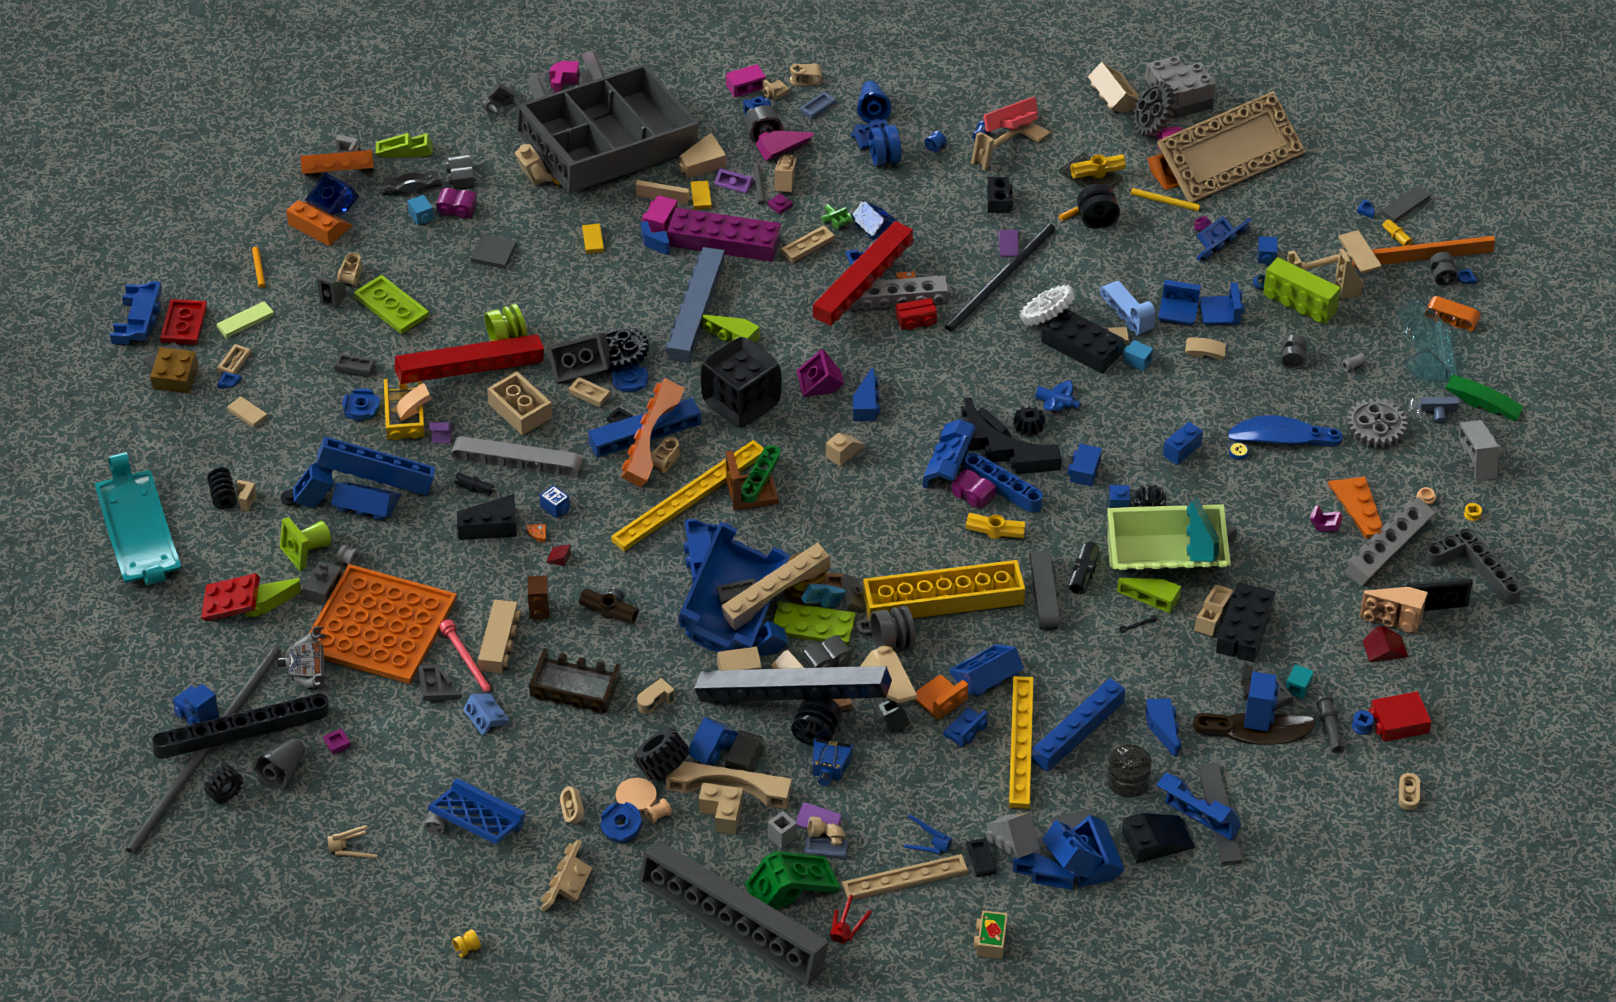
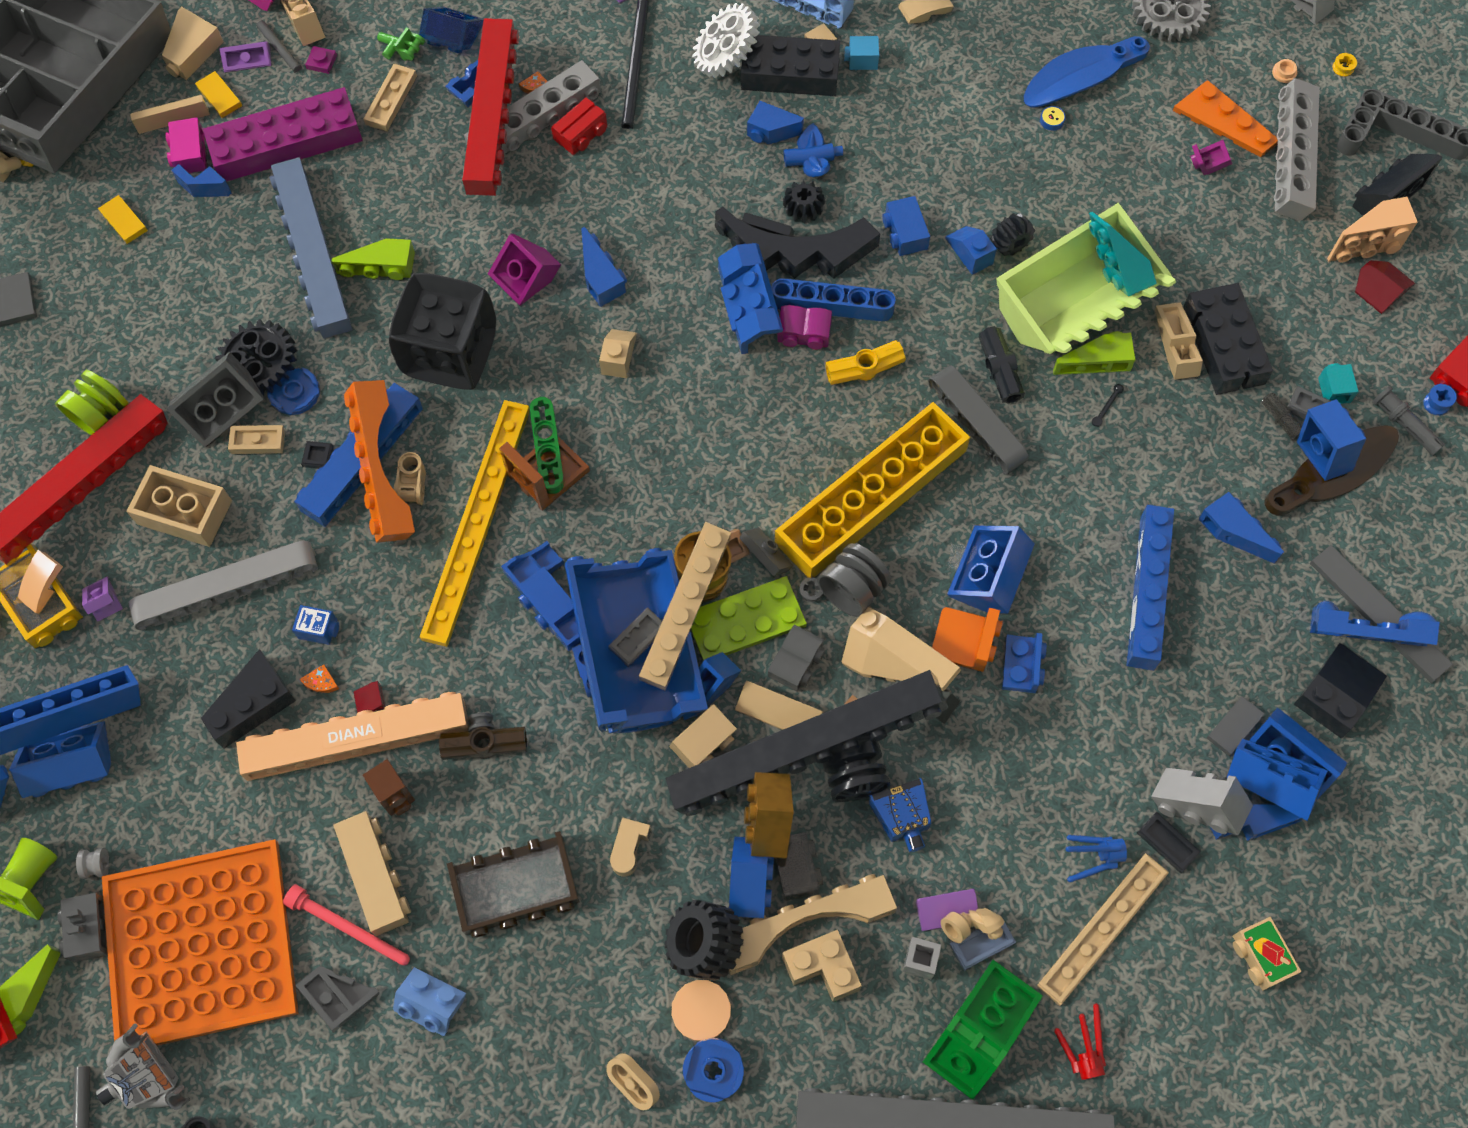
camera: 30 degrees left, 20 degrees up
(474, 484) = (193, 655): black pin -> none
(525, 563) = (352, 736): none -> light nougat brick
(658, 811) = (746, 1020): light nougat bush -> none
(744, 708) = (769, 815): none -> pearl gold brick
(824, 594) = (739, 577): dark azure slope -> none
(1021, 742) = (1101, 649): yellow plate -> none
(1043, 368) = (773, 124): none -> blue slope
(1129, 771) = (1256, 619): clear smoke wheel -> none
(1183, 443) = (992, 140): blue brick -> none

